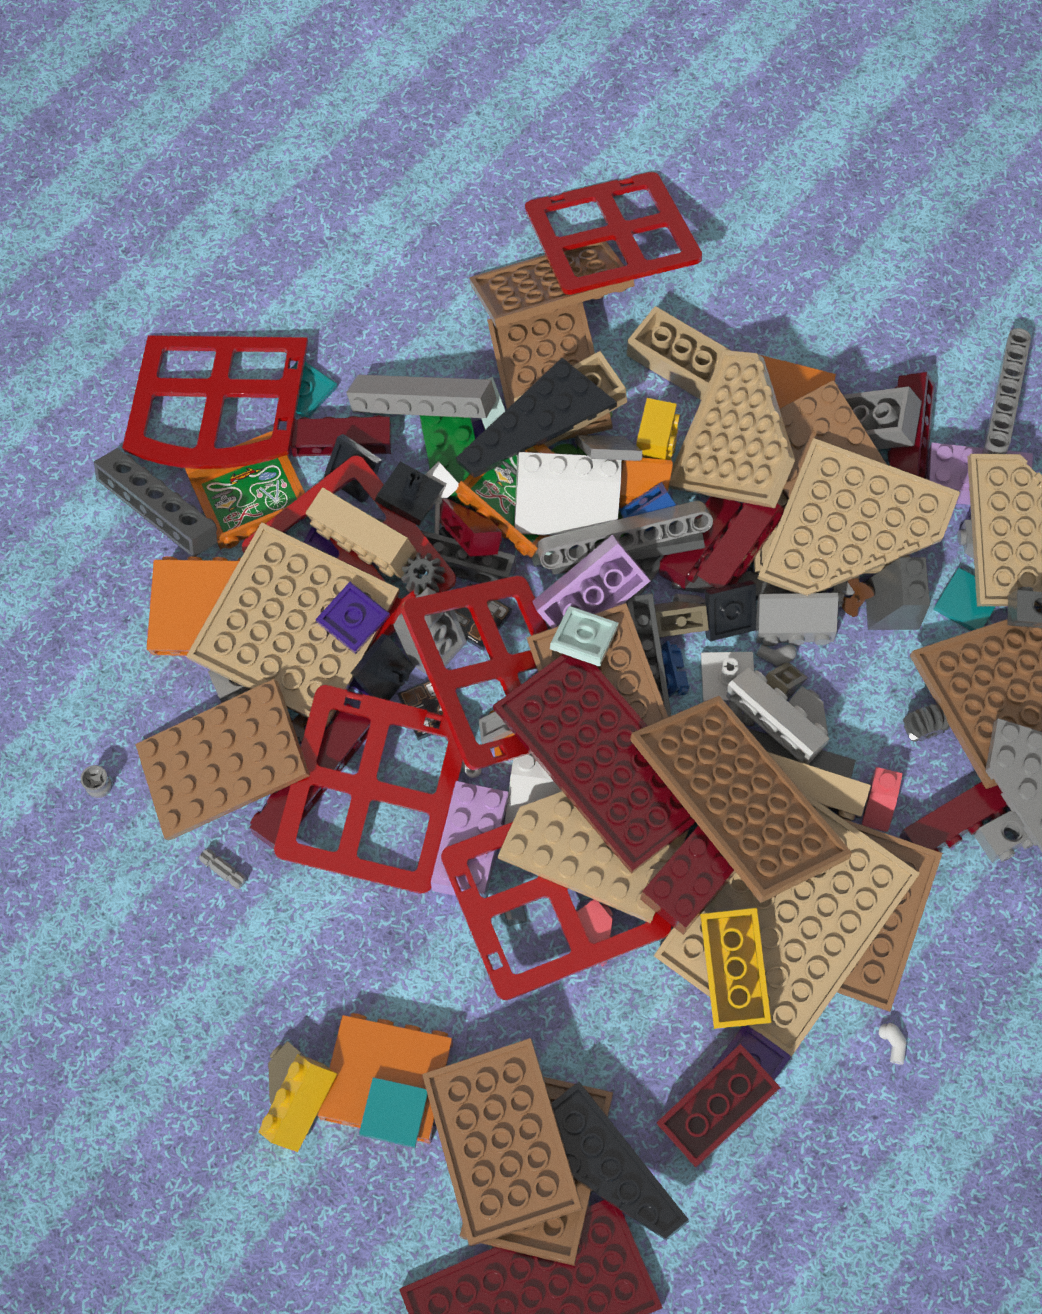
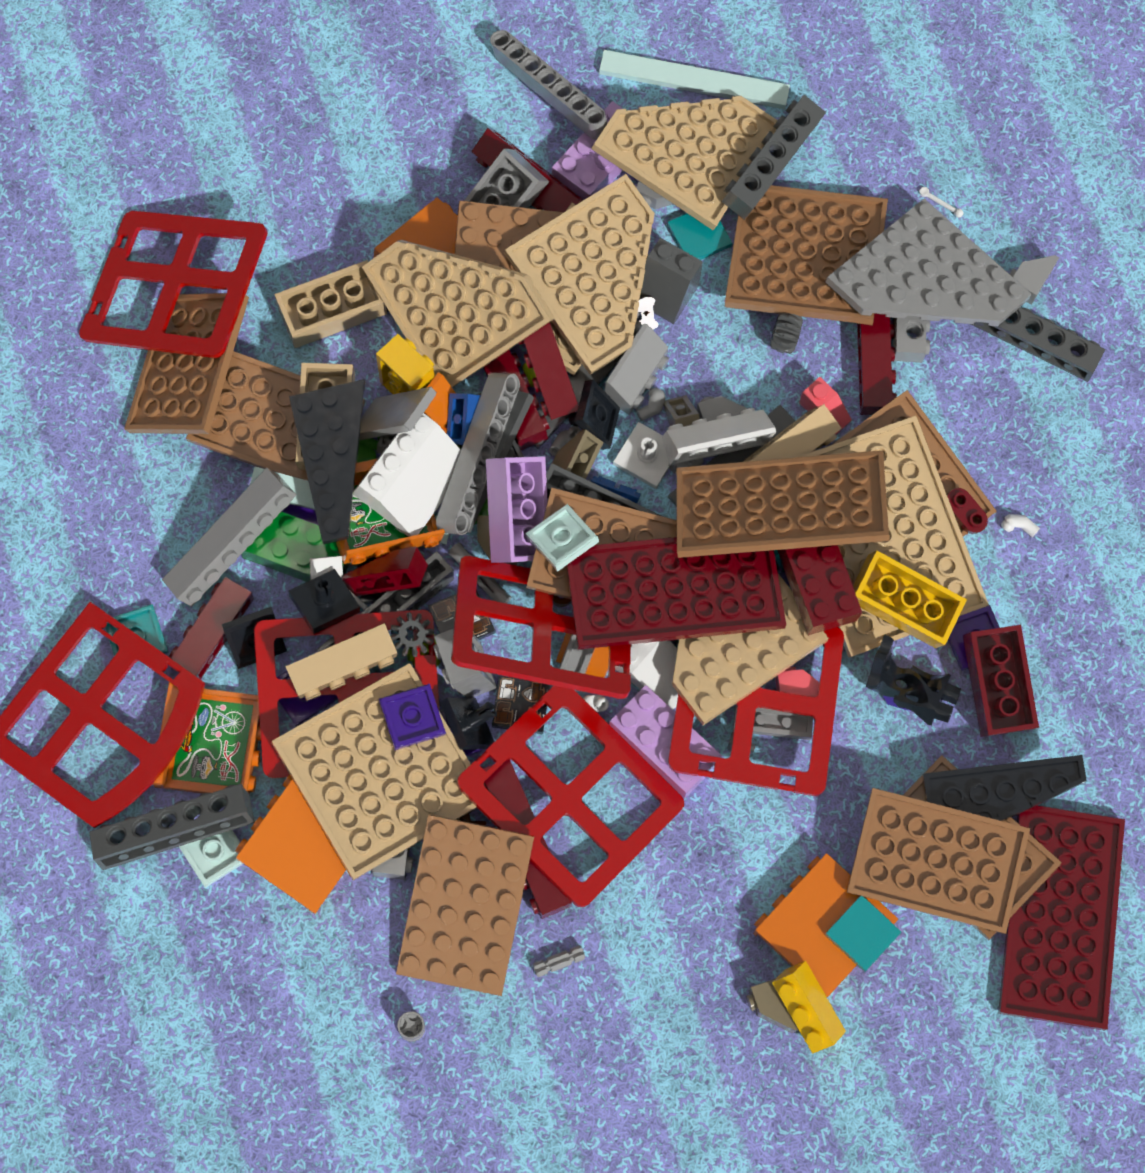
camera: 65 degrees left, 5 degrees up
(152, 546) = (213, 856): none -> light aqua tile
(518, 623) = (487, 583): none -> light grey pin
(548, 928) = (781, 724): none -> light grey plate
(653, 1039) = (923, 690): none -> black hips
(869, 980) = (965, 512): none -> dark red plate

